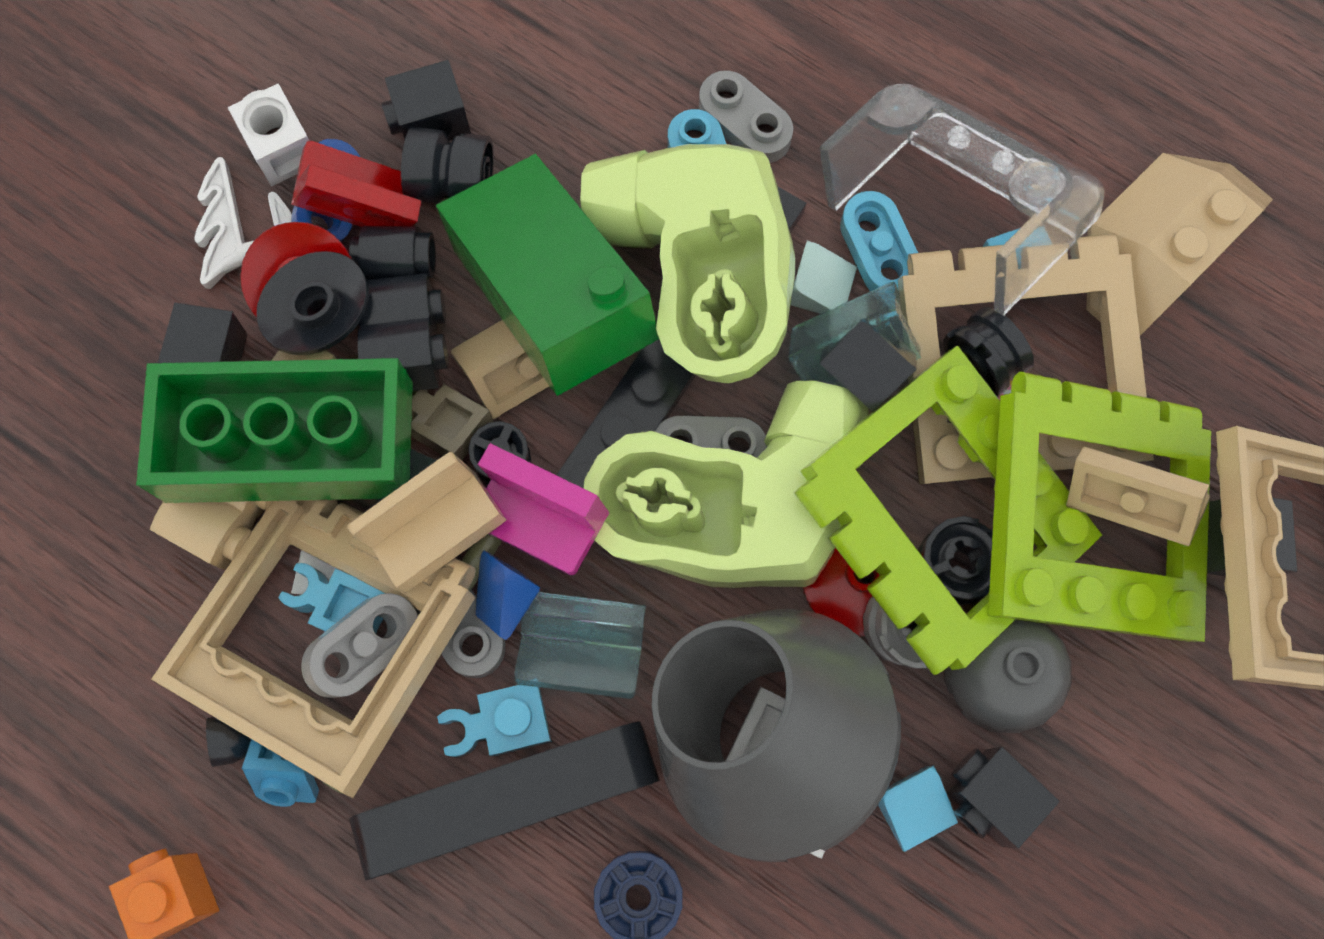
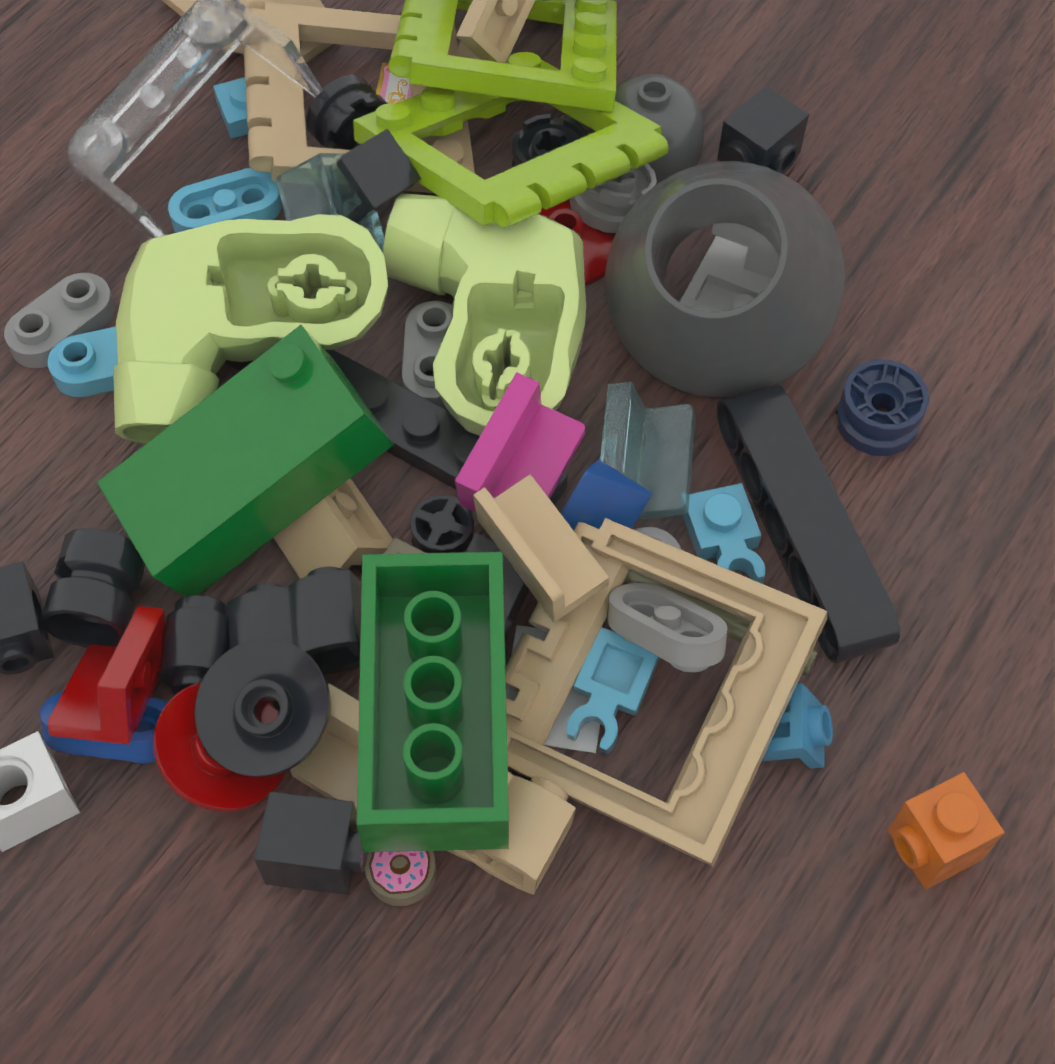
camera: 90 degrees left, 15 degrees down
(223, 222) = (164, 849): white piece -> none
(224, 743) = (770, 796): black hinge -> none

